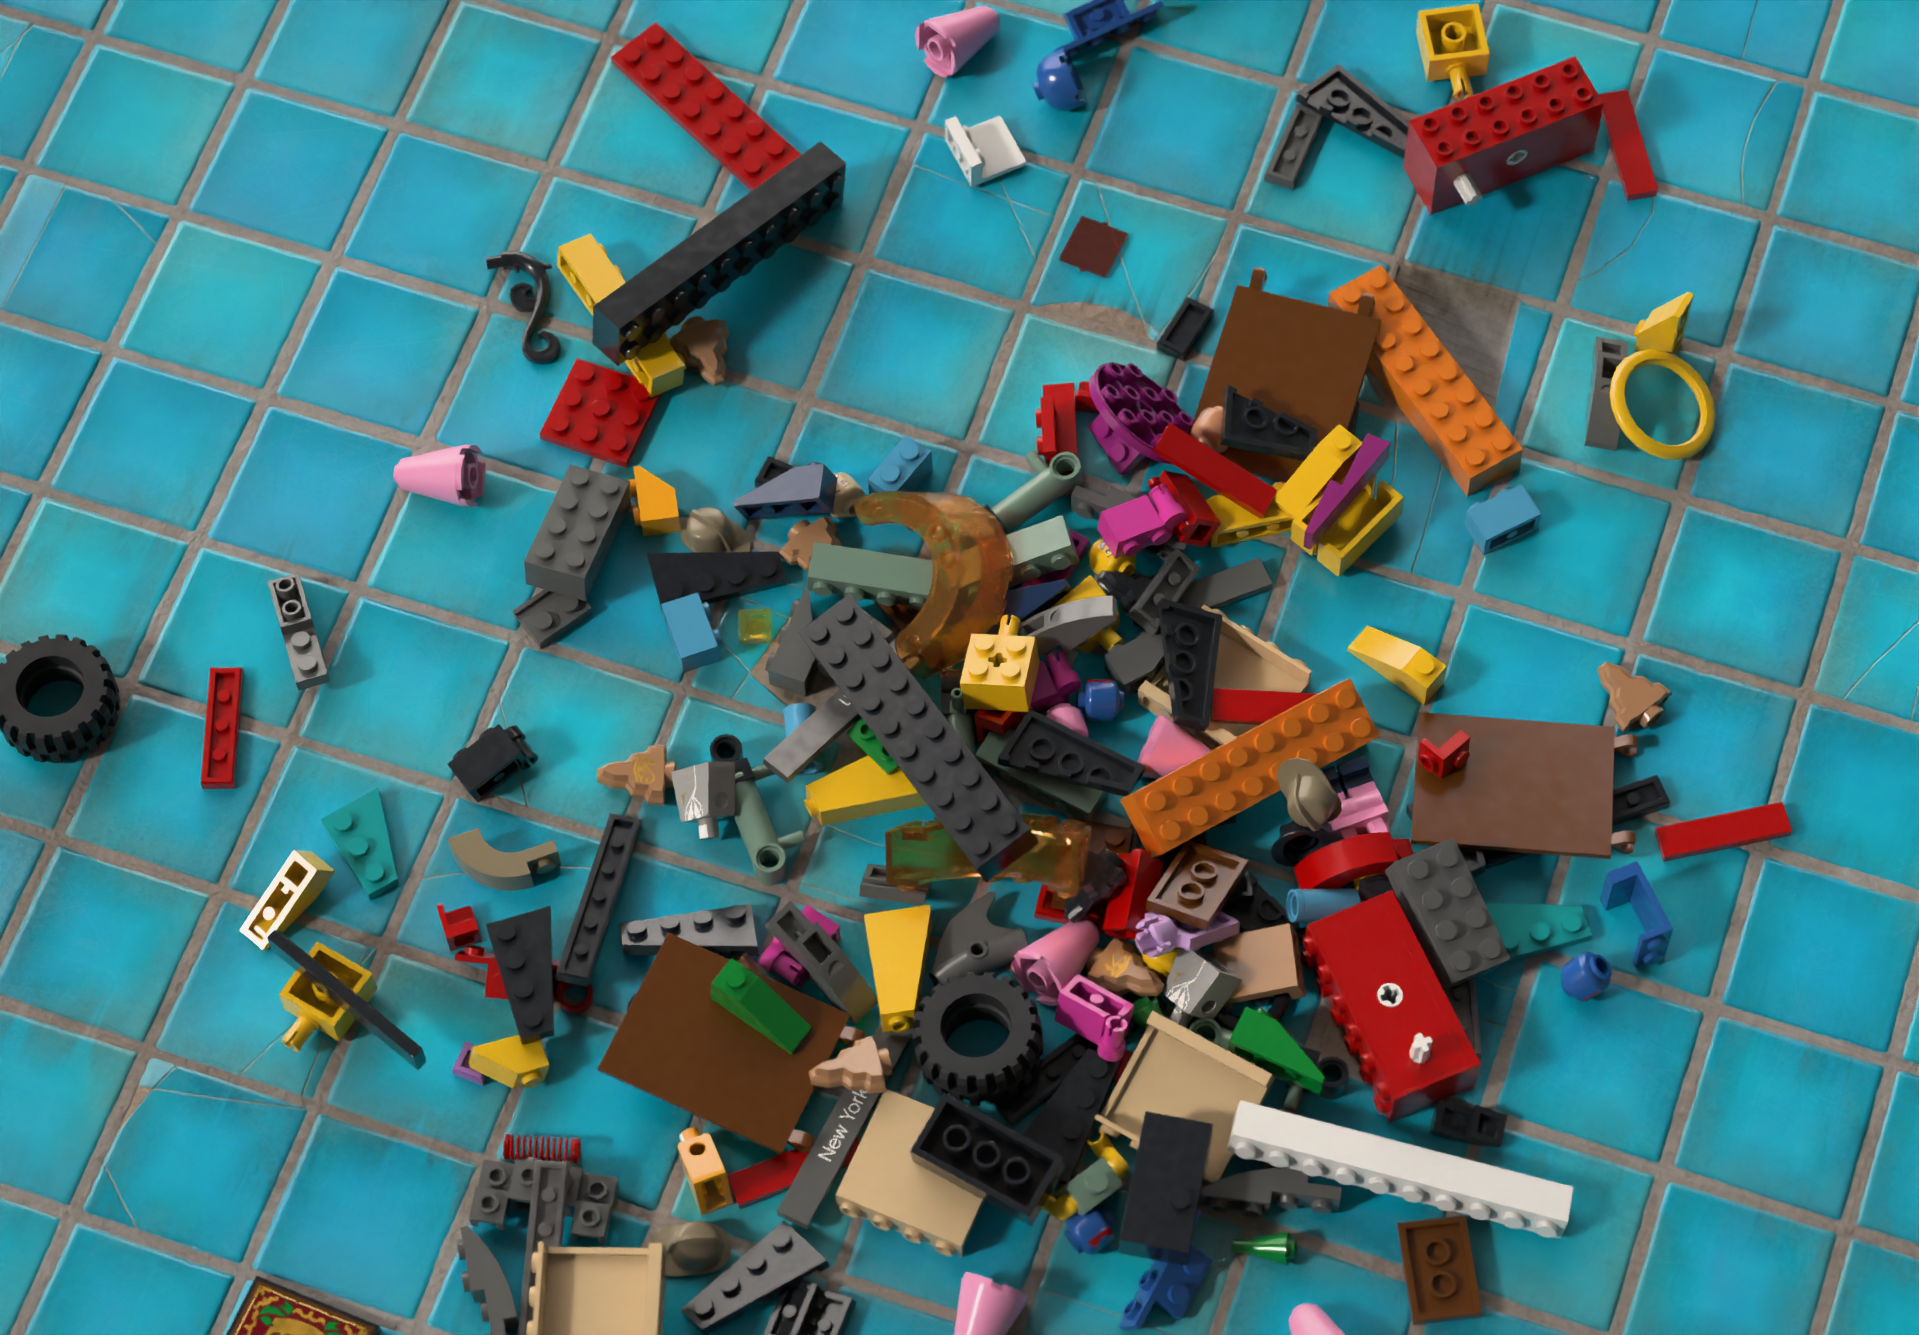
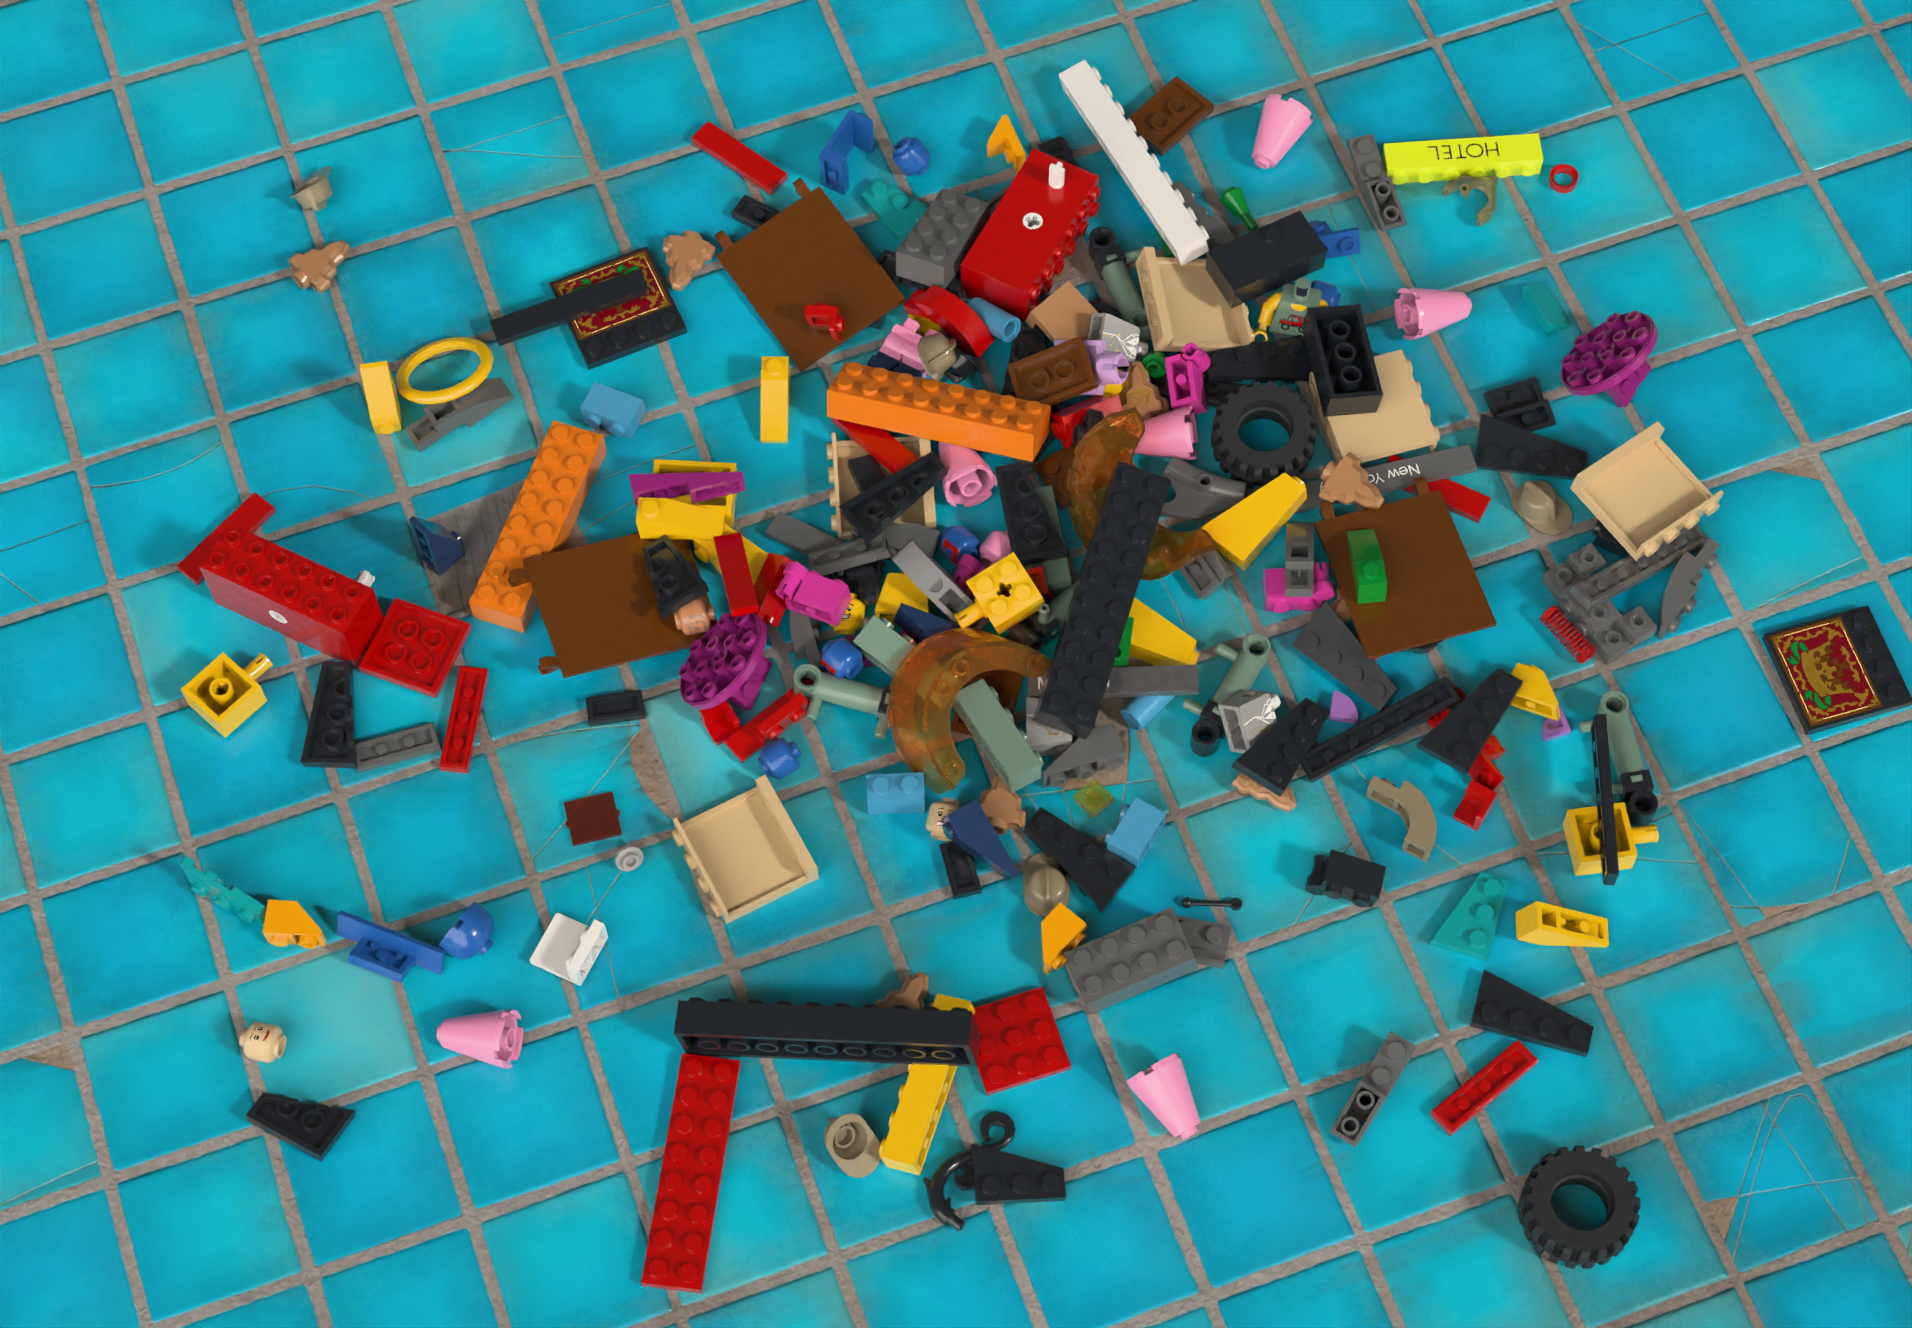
camera: 130 degrees left, 0 degrees up
(253, 804) = (1522, 1016): none -> black wing
(353, 1076) = (1634, 782): none -> sand green piece
(487, 320) = (1013, 1179): none -> black wing
(559, 667) = (1235, 903): none -> black hinge
(625, 225) = (852, 1145): none -> dark tan piece
(650, 792) = (1281, 750): none -> black wing
(652, 897) = (1343, 709): none -> medium lavender tile
(704, 1171) = (1492, 525): light orange torso -> none
(955, 330) = (746, 852): none -> tan panel
(1017, 410) = (779, 758): none -> blue head
(1027, 241) = (628, 857): none -> light grey plate
(1062, 502) = (842, 658): none -> blue head
(1240, 674) = (865, 472): none -> black tile
(1270, 1047) = (1123, 276): green slope -> none
(1277, 211) = (464, 719): none -> red tile
(1380, 214) = (415, 647): none -> red plate
(1466, 275) = (436, 544): none -> dark blue slope
(1537, 1089) = (1006, 141): none -> light orange slope
(1625, 606) = (627, 326): none -> plate
(1652, 556) = (569, 307): none -> black tile
(1884, 384) = (318, 265): none -> medium nougat rock

